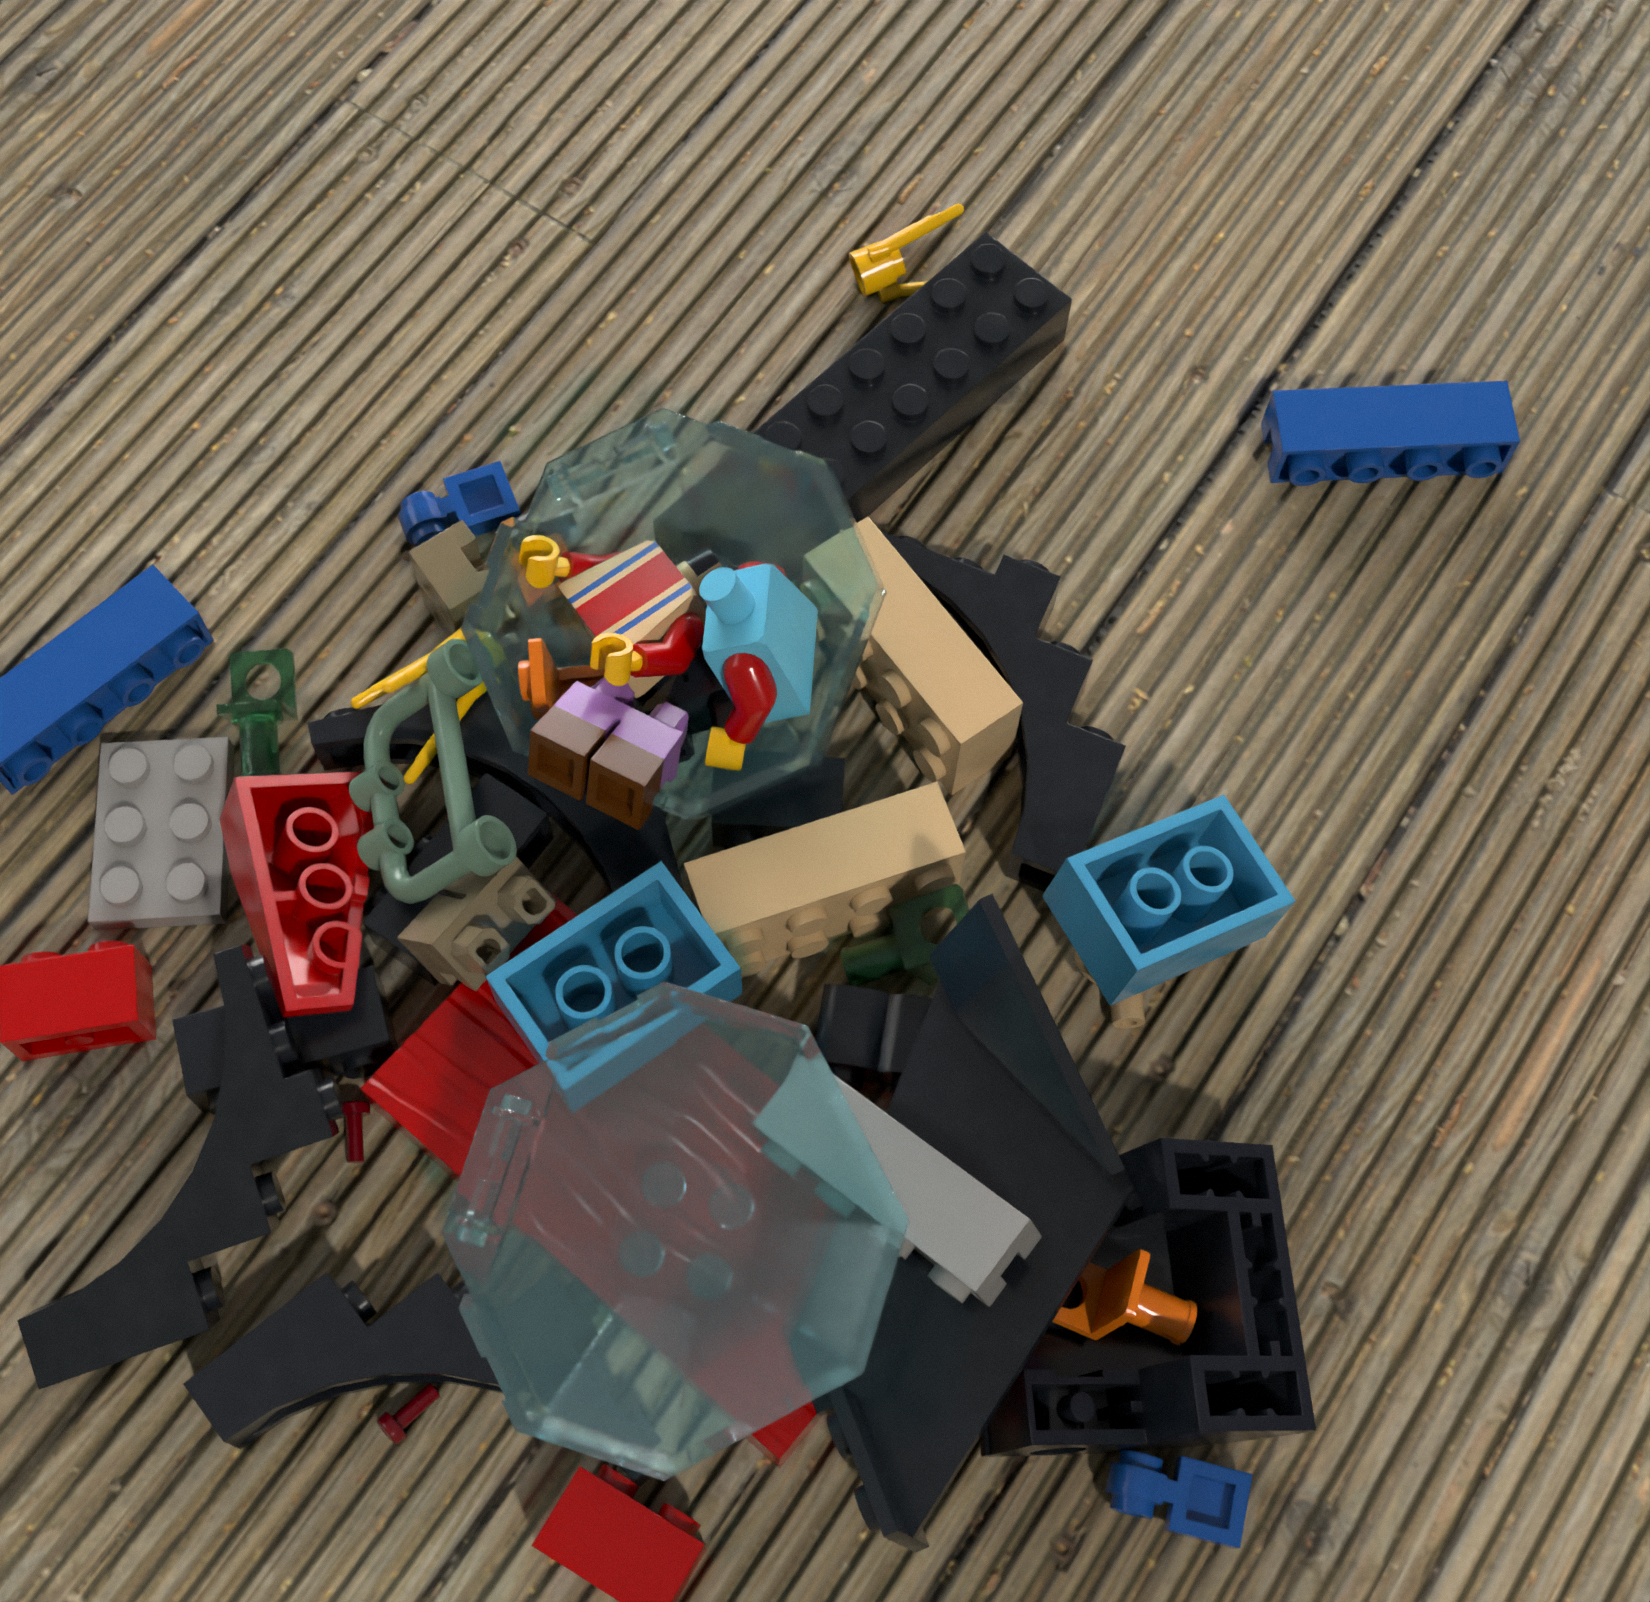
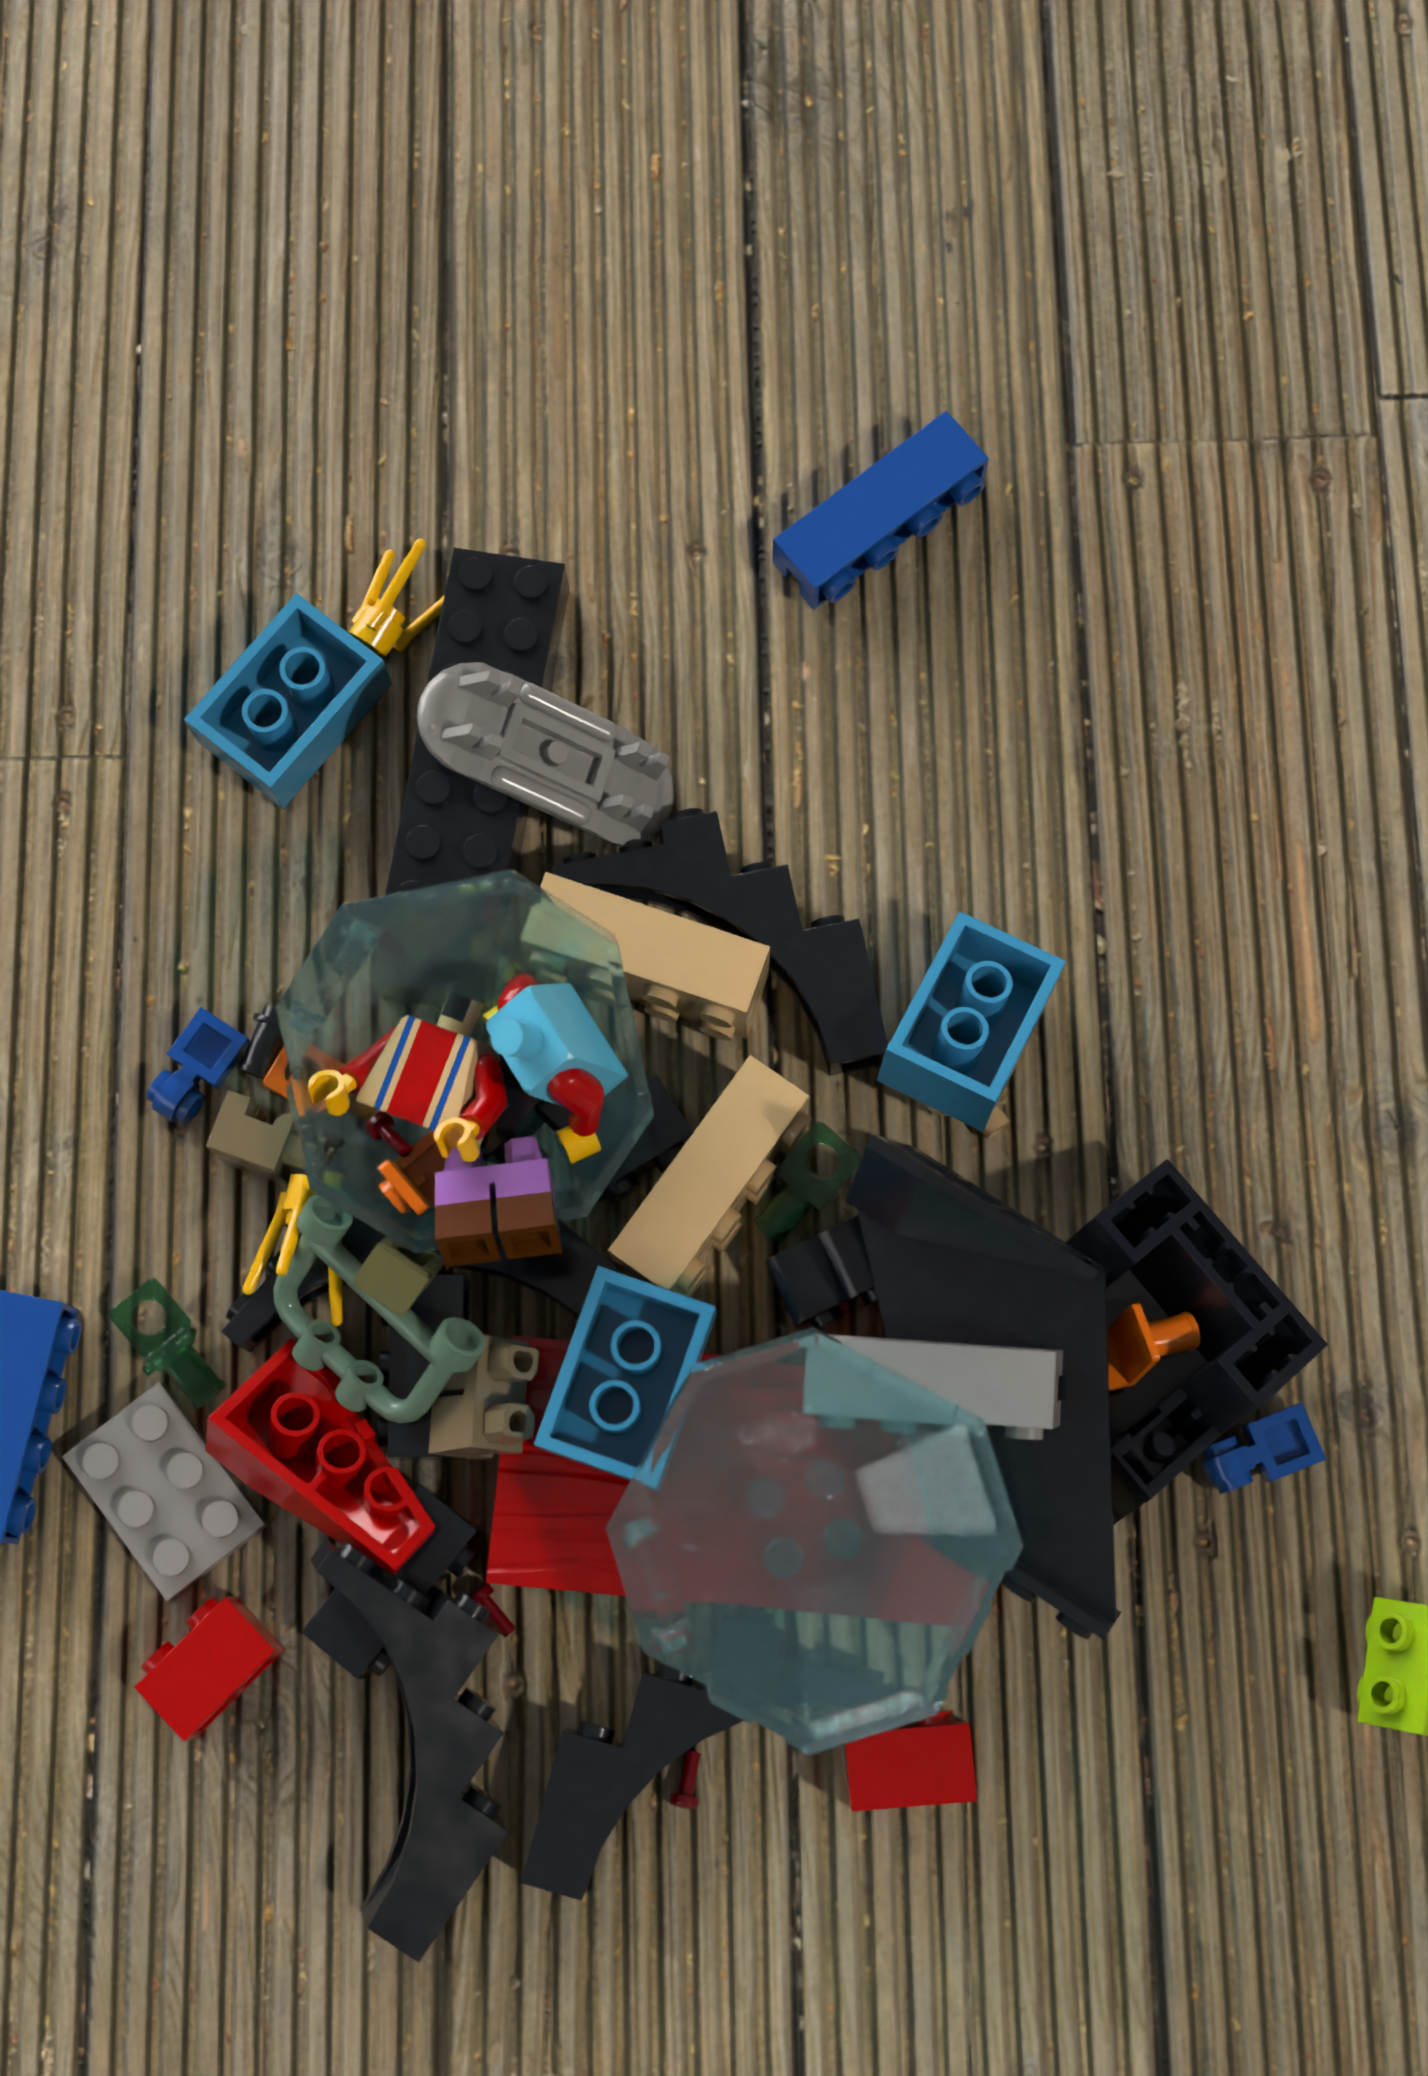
camera: 30 degrees left, 10 degrees up
(482, 756) = (397, 1274): none -> olive slope
(567, 635) = (381, 1127): none -> dark red piece
(758, 271) = (289, 700): none -> dark azure brick
(944, 432) = (546, 752): none -> light grey piece

